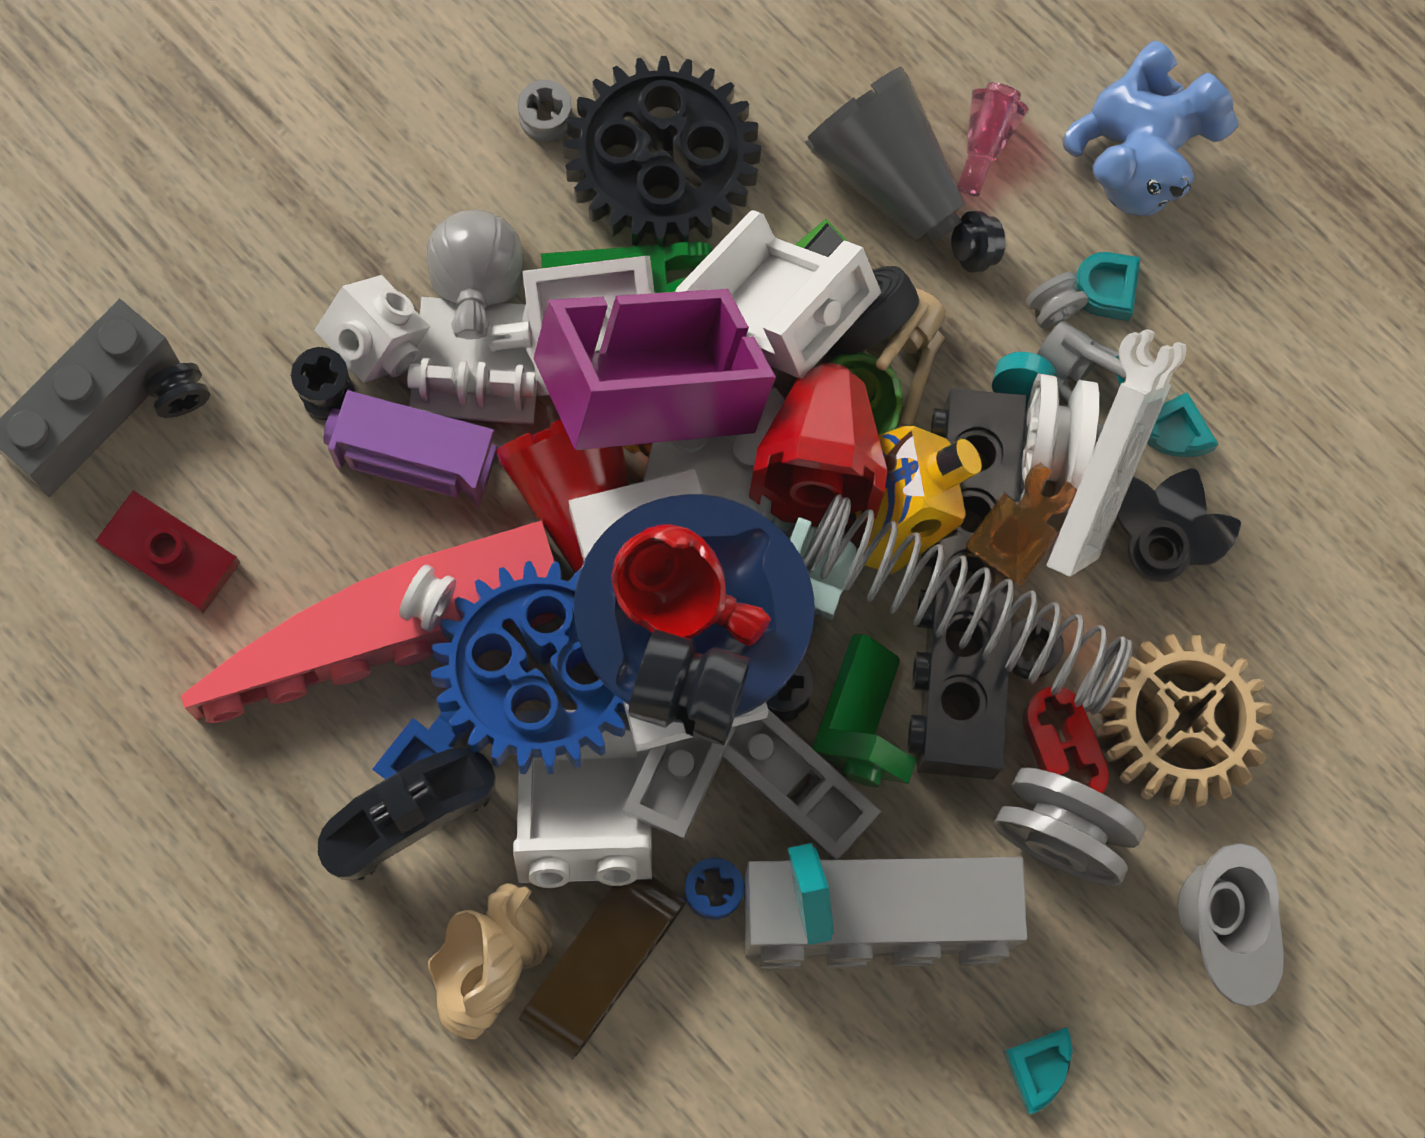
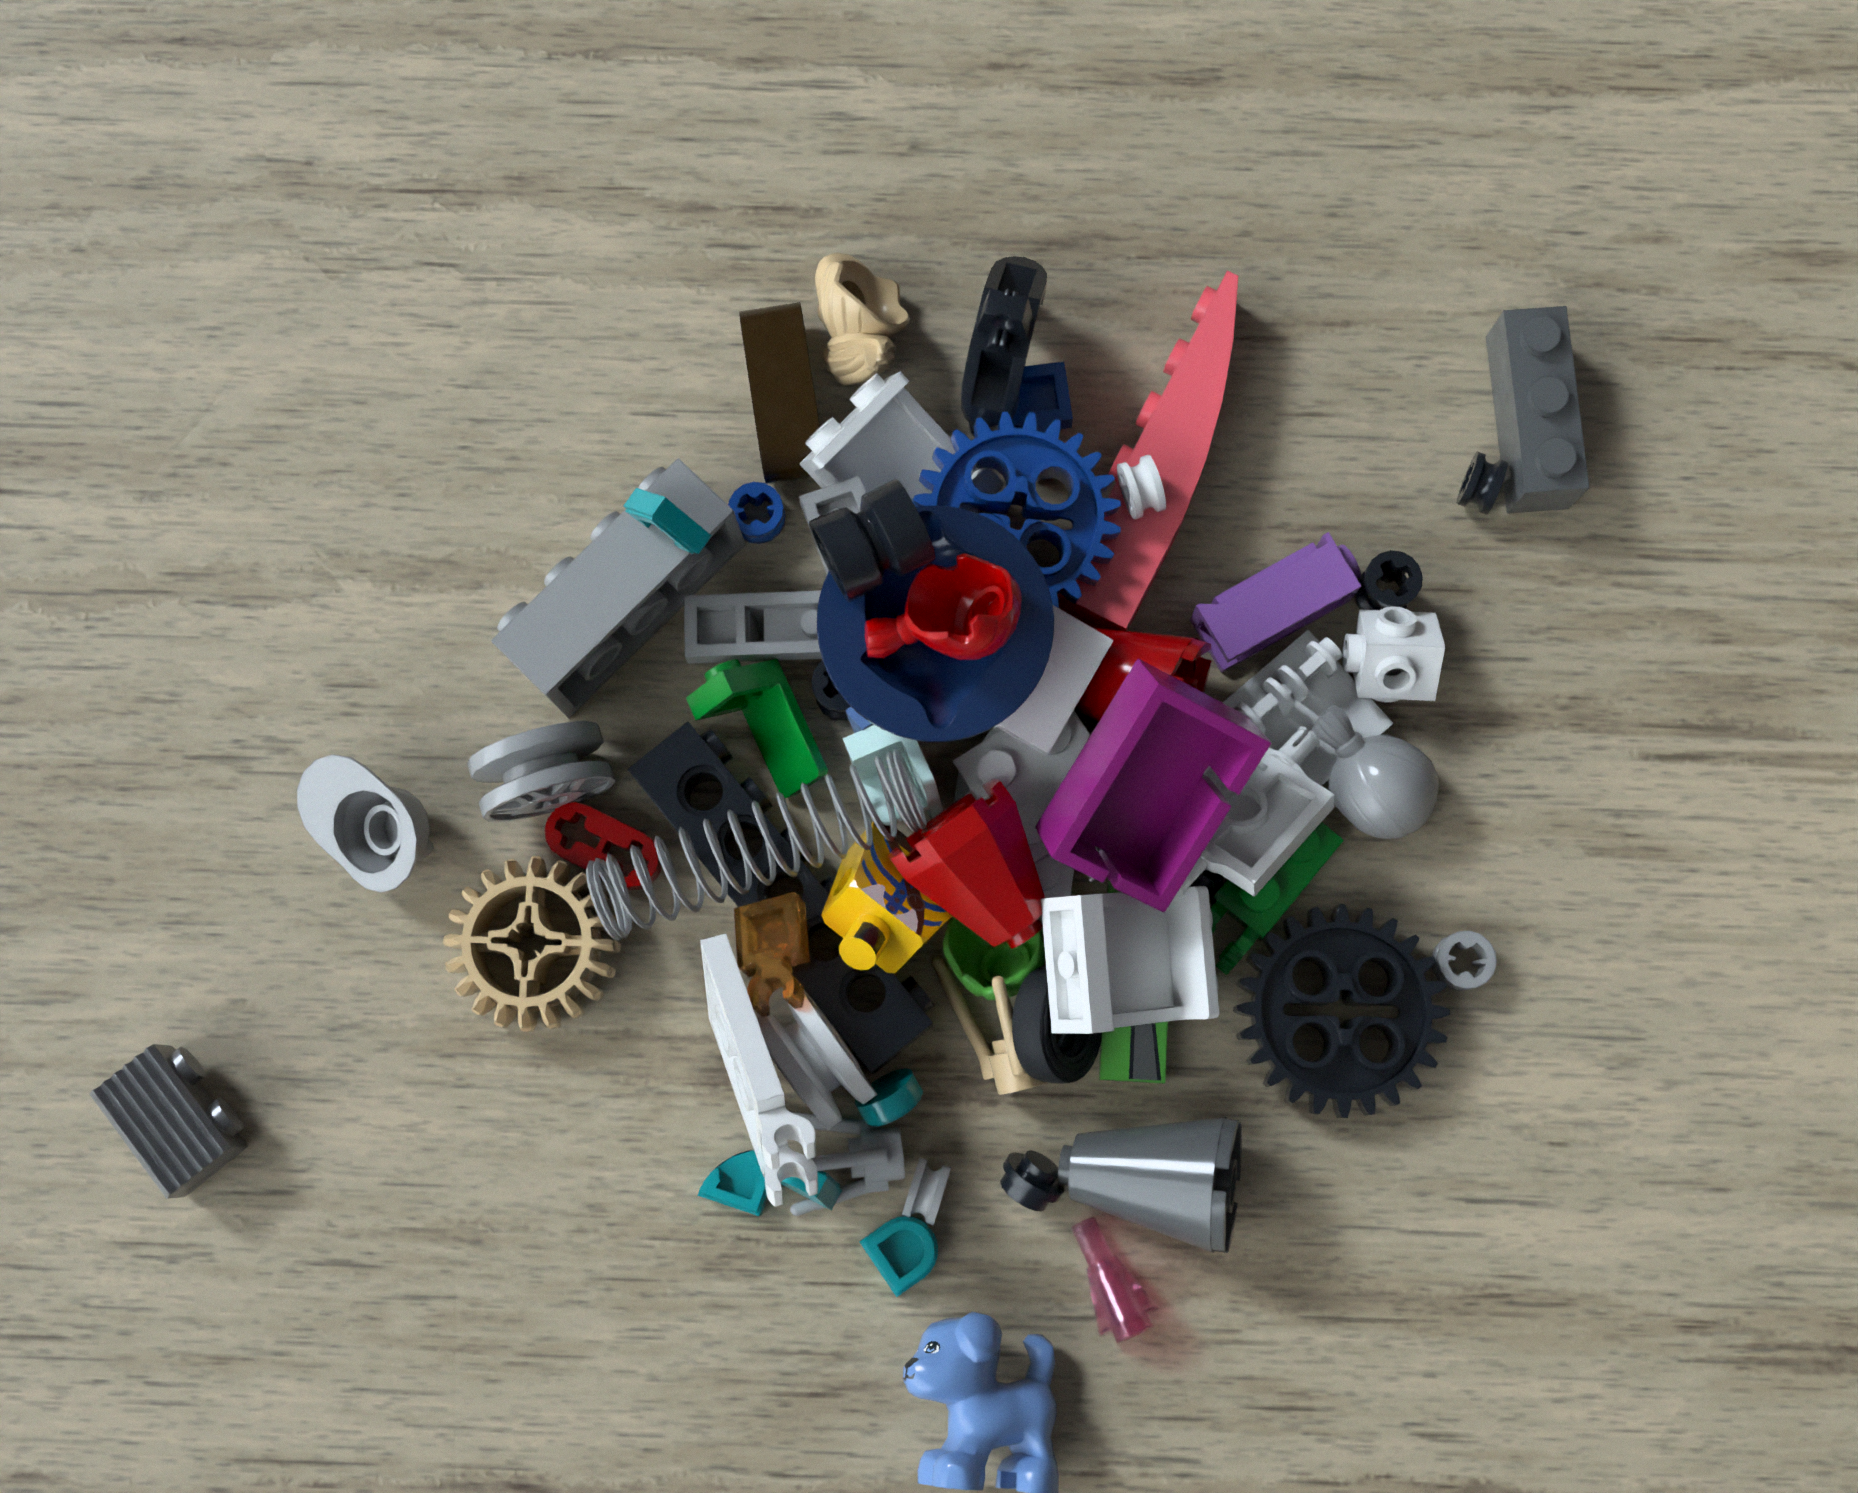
camera: 145 degrees right, 5 degrees up
(167, 551) = (1363, 375): dark red plate -> none
(1040, 1068) = (422, 609): teal tile -> none
(1043, 630) = (705, 916): black bush -> none
(1178, 521) = (676, 1105): black plate -> none

